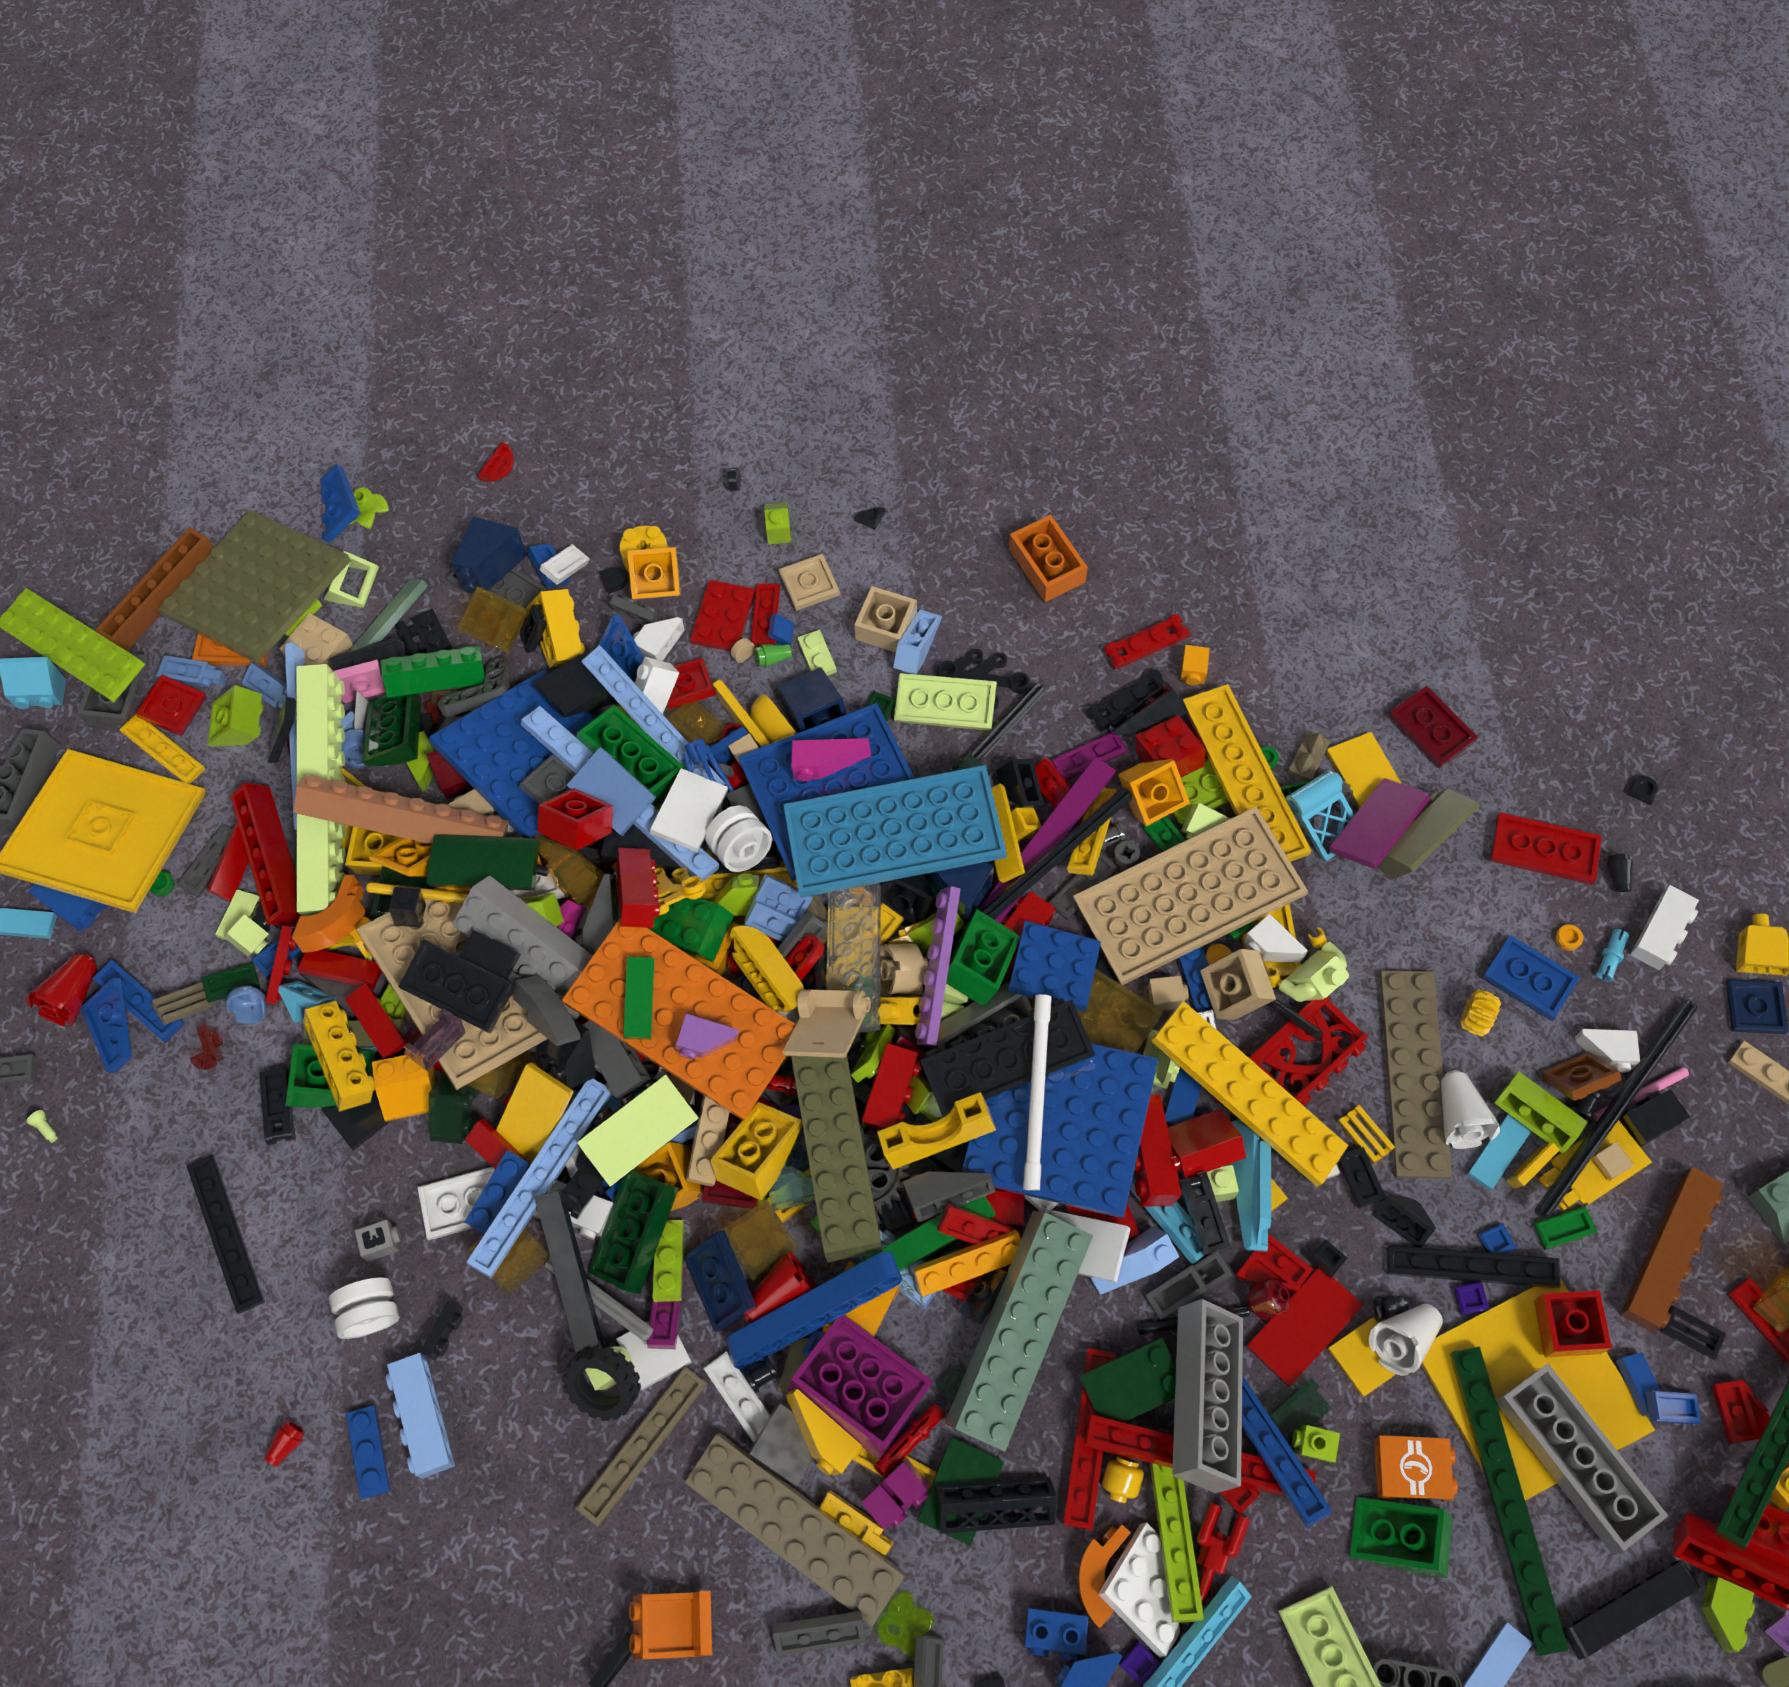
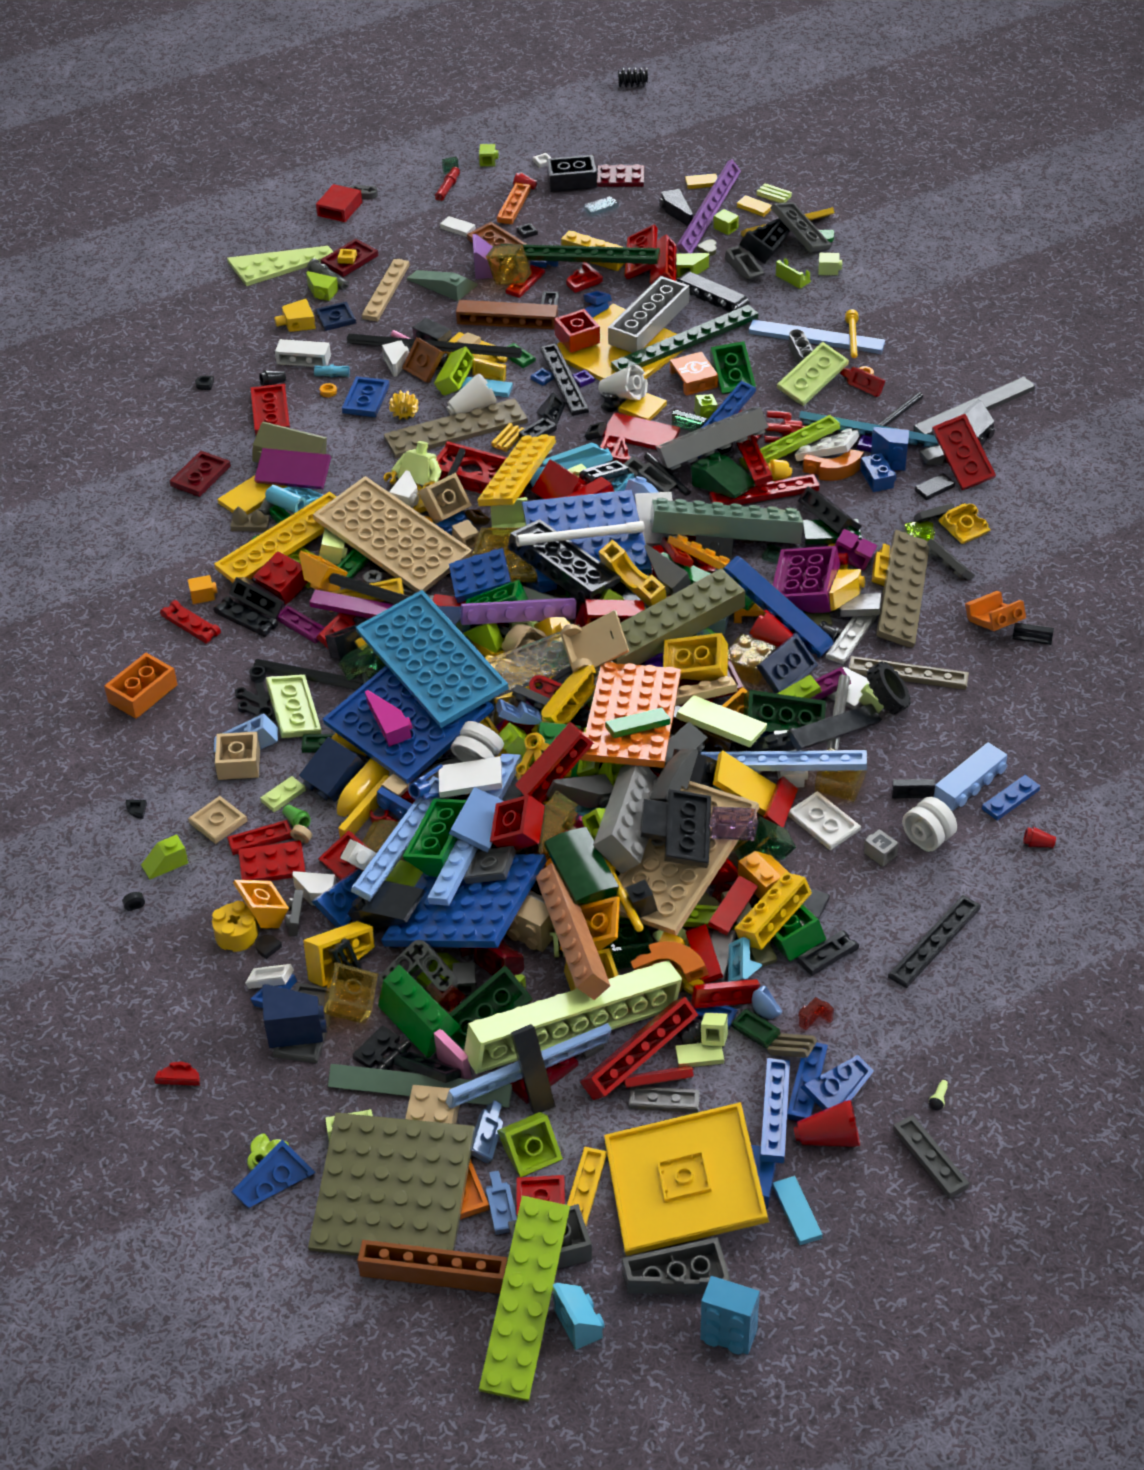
camera: 115 degrees left, 20 degrees down
(113, 943) = (775, 1111): none -> plate
(497, 1191) = (807, 791): blue plate -> none
(703, 1037) = (644, 686): medium lavender slope -> none
(781, 629) = (272, 818): blue tile -> none
(1268, 1299) = (636, 442): dark red head -> none

